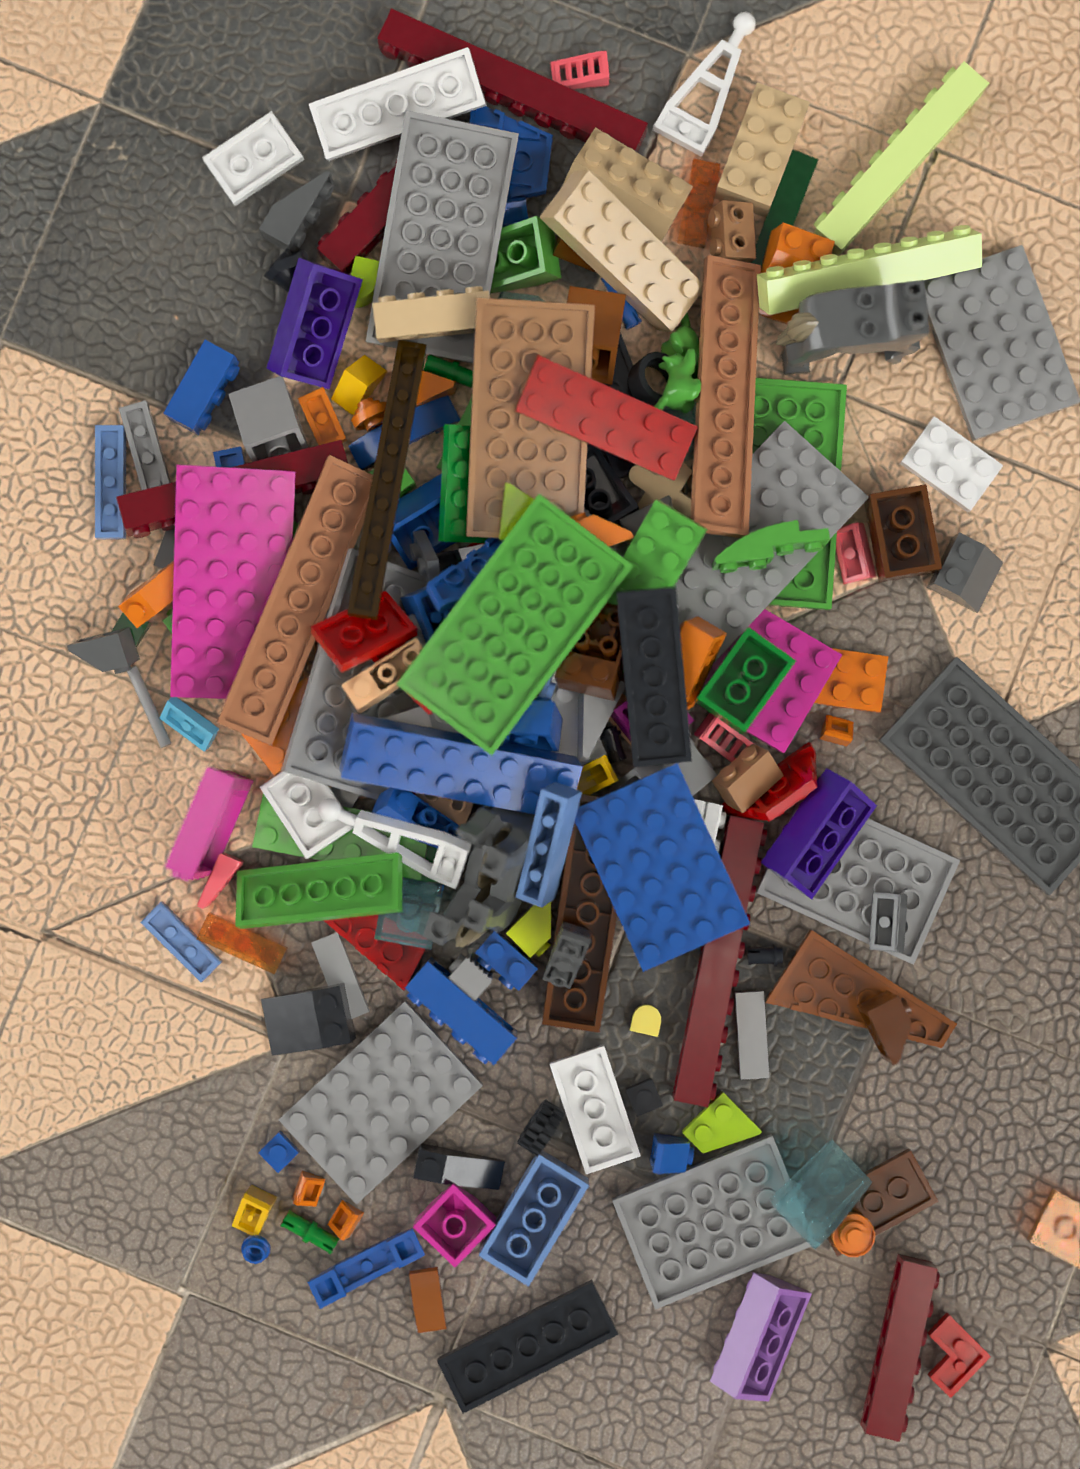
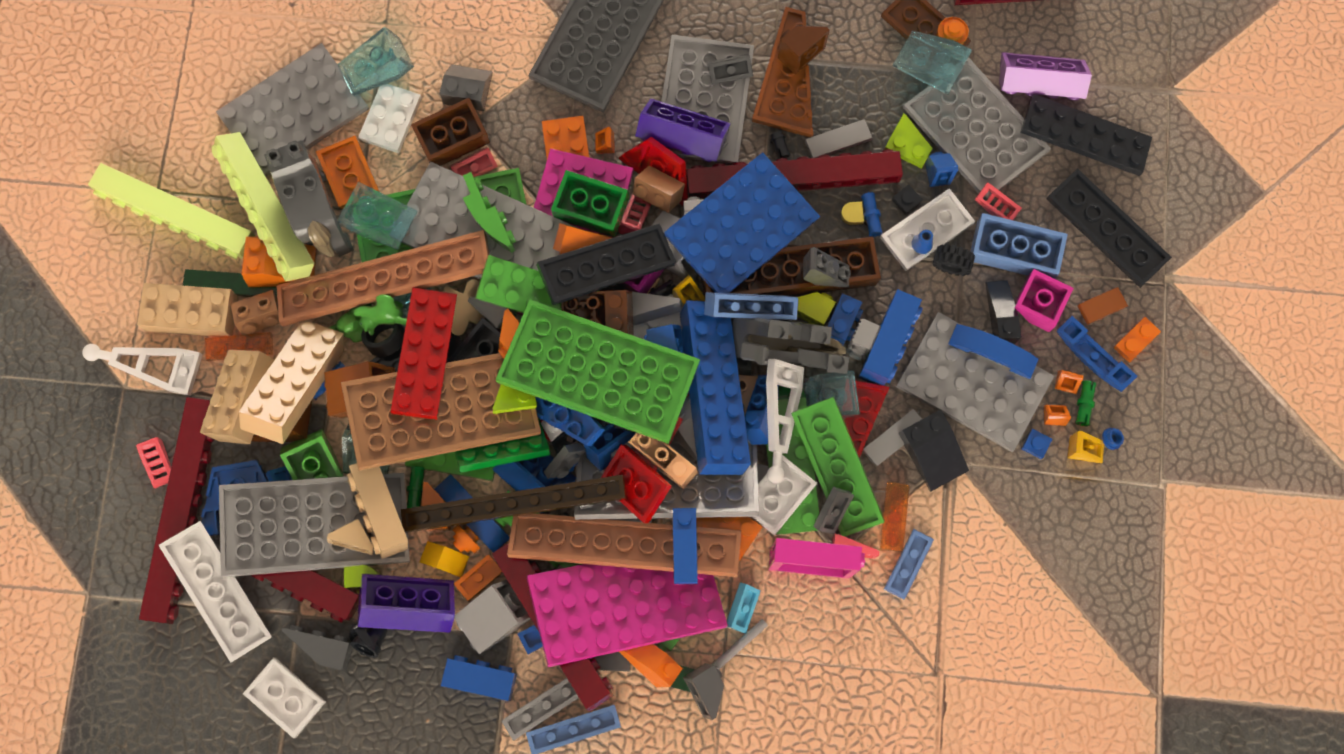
camera: 105 degrees left, 10 degrees down
(266, 868) = (833, 510): none -> dark grey plate
(268, 668) = (685, 546): none -> blue slope
(372, 1328) = (1136, 339): none -> orange plate
(408, 277) = (351, 537): none -> tan slope
(409, 1137) = (995, 349): none -> blue slope
(575, 1087) = (923, 242): none -> blue cone
(580, 1223) = (992, 210): none -> coral slope
(636, 1044) = (871, 214): none -> blue pin
(661, 1363) = (1086, 134): none -> black plate
(811, 409) = (376, 216): none -> clear light blue slope
(890, 391) = (344, 168): none -> orange plate
(1029, 463) = (375, 62): none -> clear light blue slope

